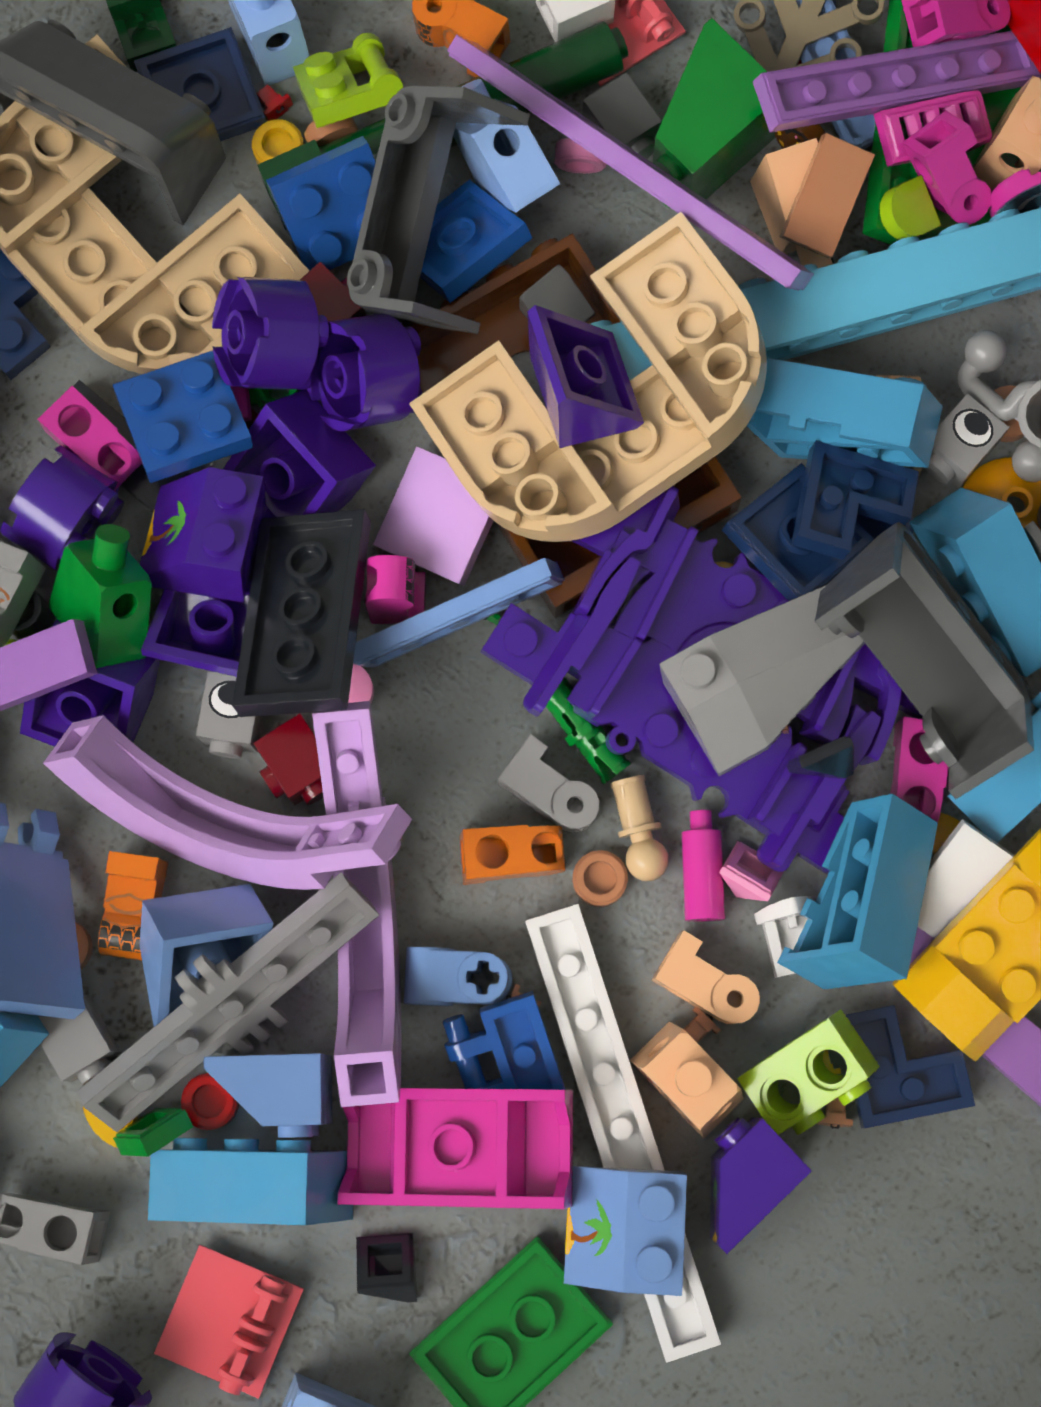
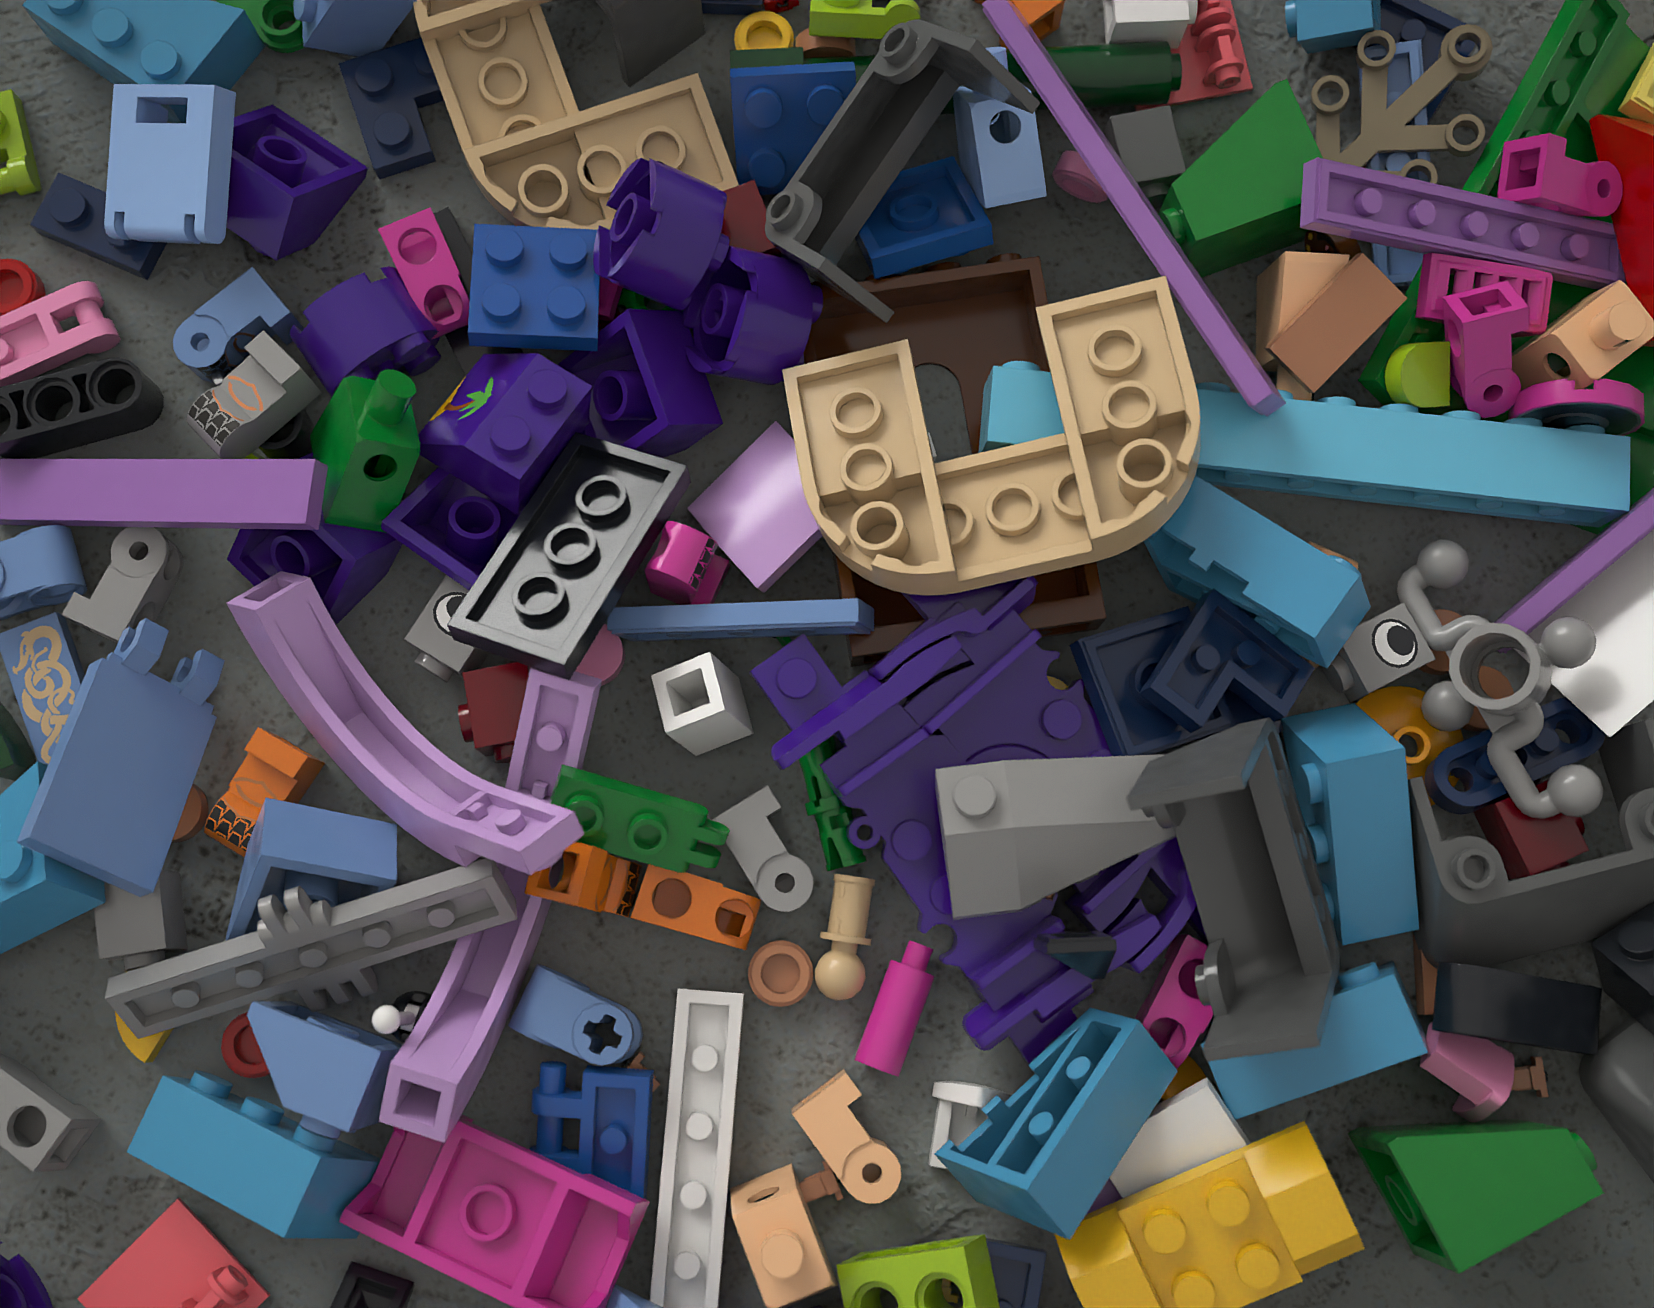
camera: 15 degrees right, 0 degrees up
(152, 1131) = (175, 1055): green tile -> none
(321, 1029) = (400, 1015): none -> hinge
(422, 865) = (589, 881): none -> orange leg
(445, 800) = (639, 821): none -> green hinge
(452, 692) = (702, 704): none -> white brick
(559, 294) = (988, 327): dark grey slope -> none
(580, 378) = (979, 416): dark purple slope -> none
(747, 875) = (944, 1038): bright pink slope -> none

